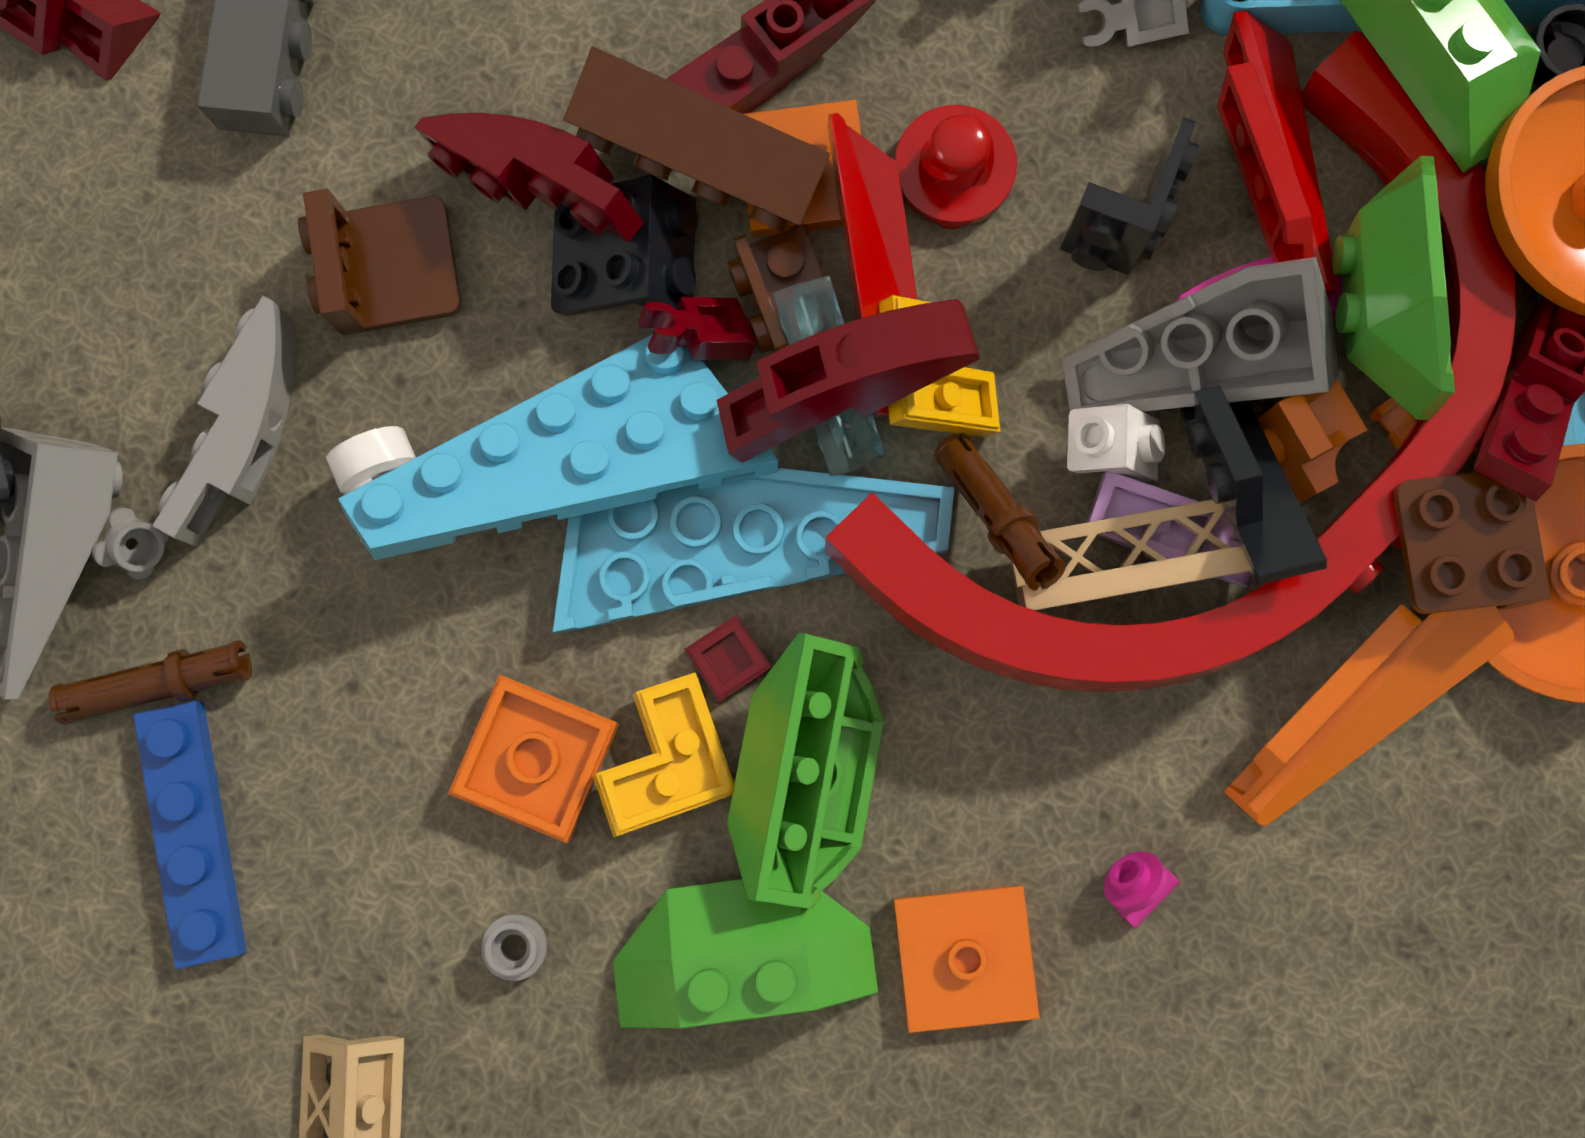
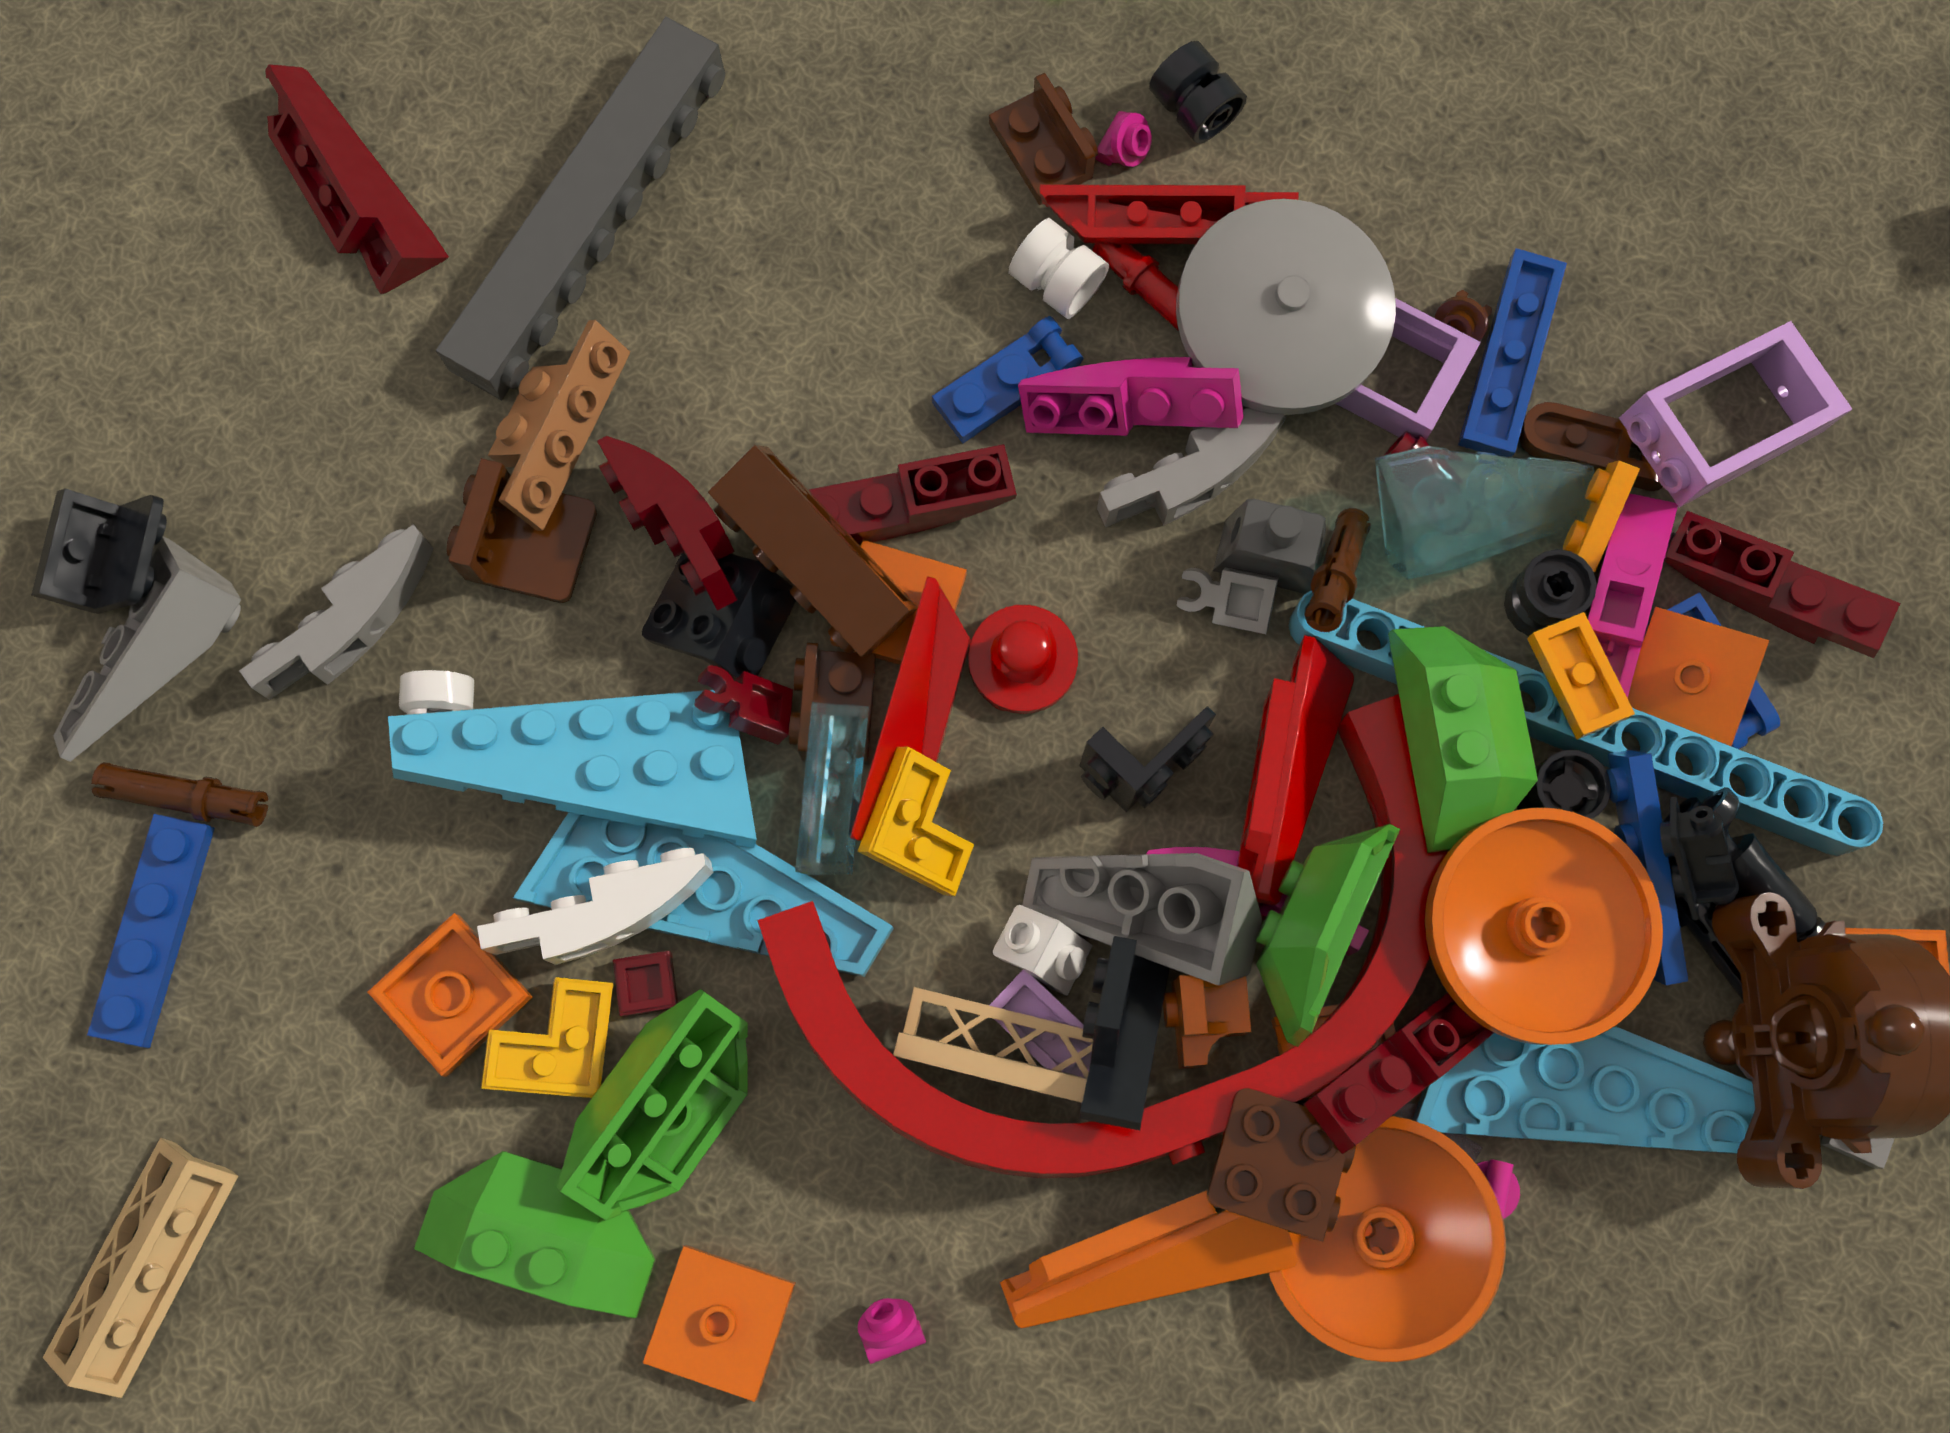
camera: 20 degrees right, 5 degrees down
(143, 557) = (217, 691): light grey plate -> none
(357, 129) = (553, 422): none -> medium nougat bracket
(494, 953) = (343, 1139): light grey plate -> none
(676, 585) = (622, 905): none -> white slope
(846, 367) = (836, 791): dark red slope -> none
(1010, 527) = (915, 978): reddish brown pin -> none

